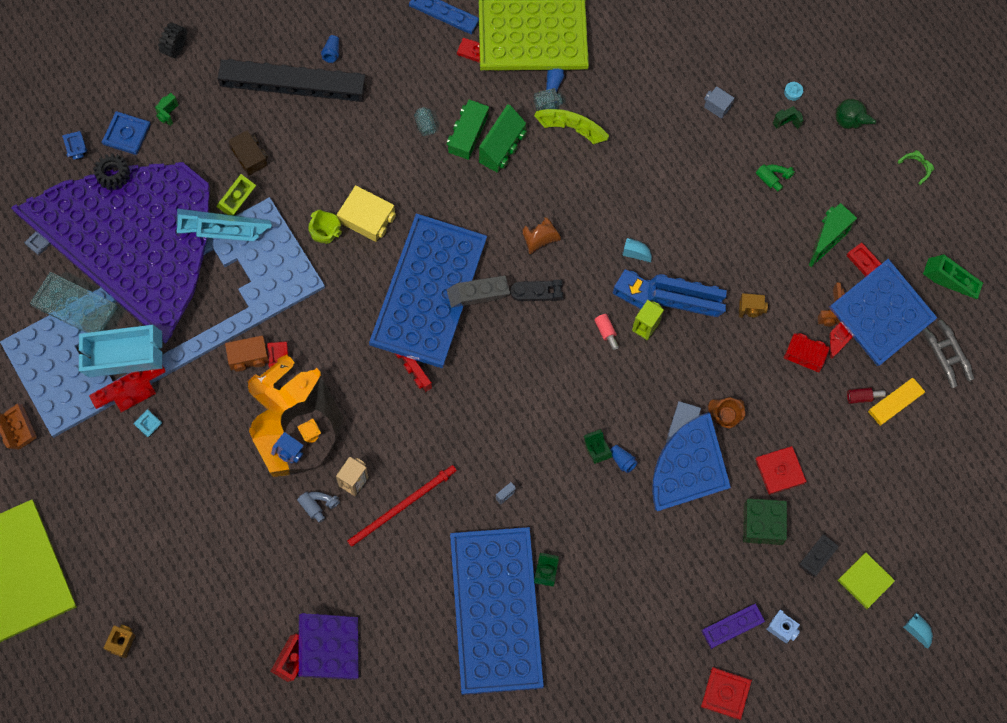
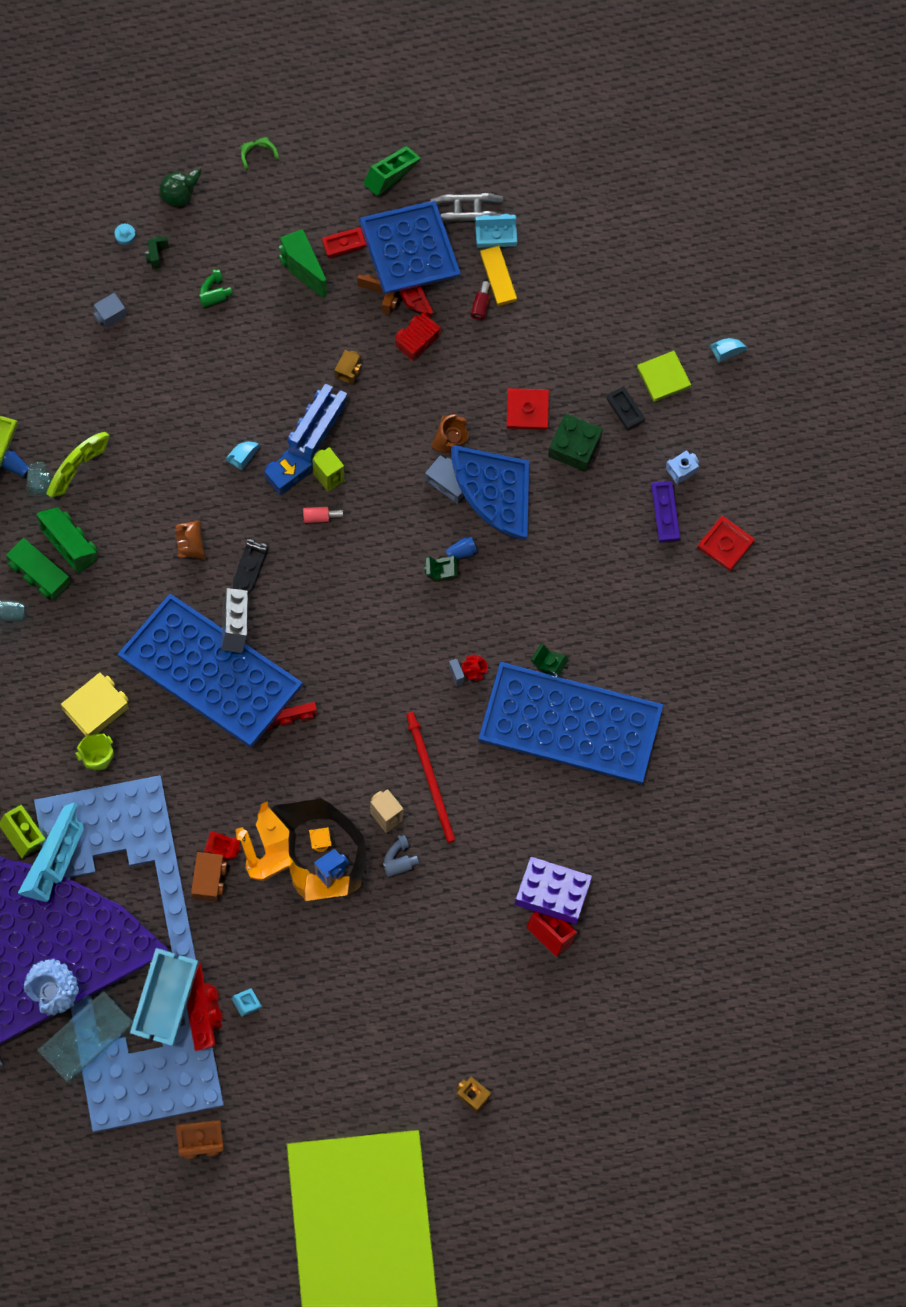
camera: 70 degrees left, 0 degrees up
(103, 261) = (52, 986): none -> light blue hair
(515, 507) = (474, 667): none -> red gear
(937, 384) = (496, 231): none -> medium azure bracket

